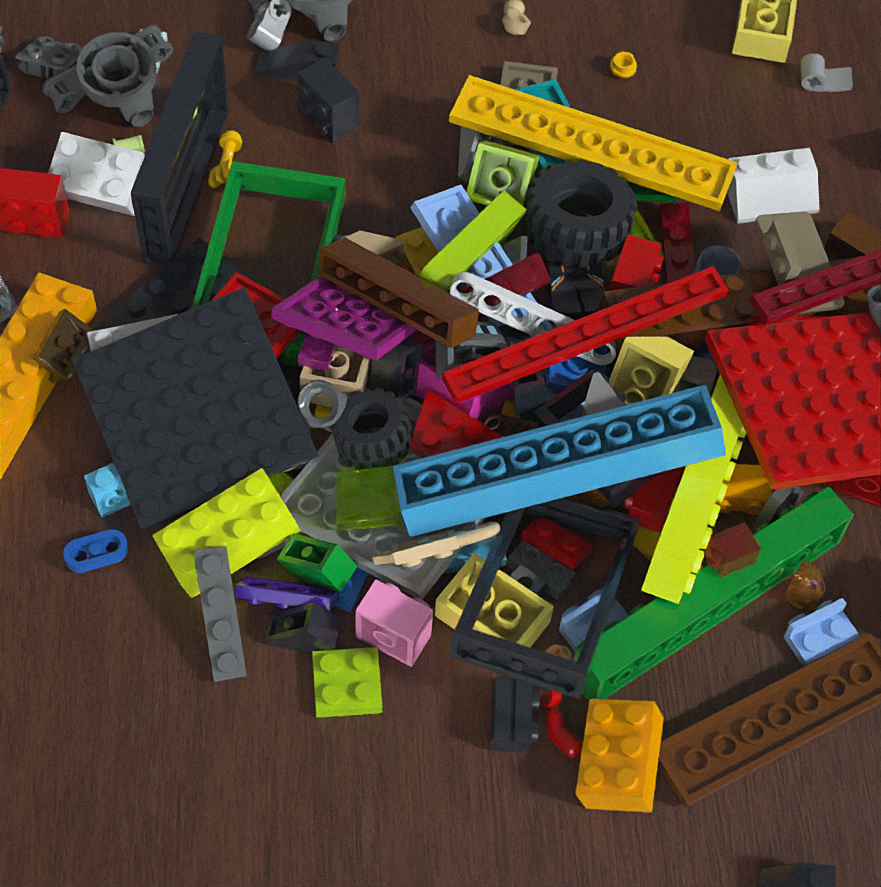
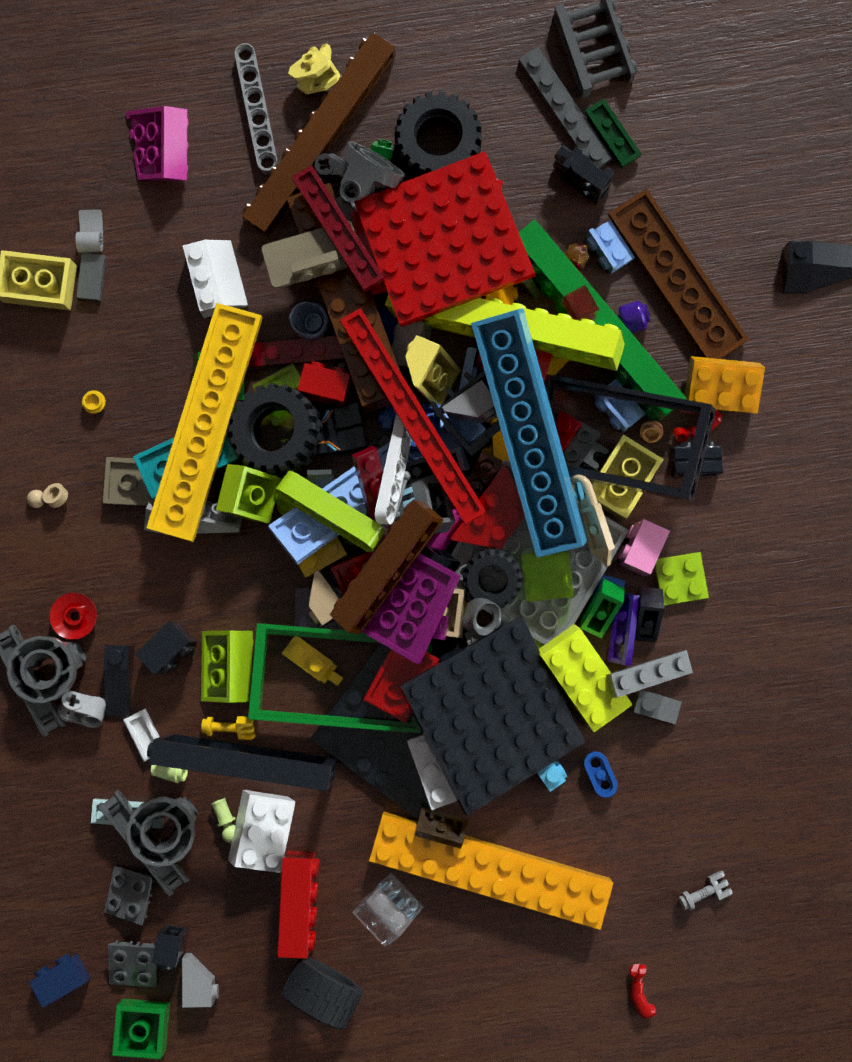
camera: 90 degrees left, 25 degrees up
(174, 626) = (656, 706): none -> dark grey slope
(242, 82) = (142, 731): none -> white tile
(291, 250) = (312, 661): none -> yellow hinge
(300, 157) = (226, 666): none -> lime slope
(376, 27) = (62, 612): none -> red dish
(511, 332) = (407, 475): none -> light grey hinge
(721, 650) = (634, 316): none -> dark purple head
(771, 74) = (91, 277): none -> dark grey tile

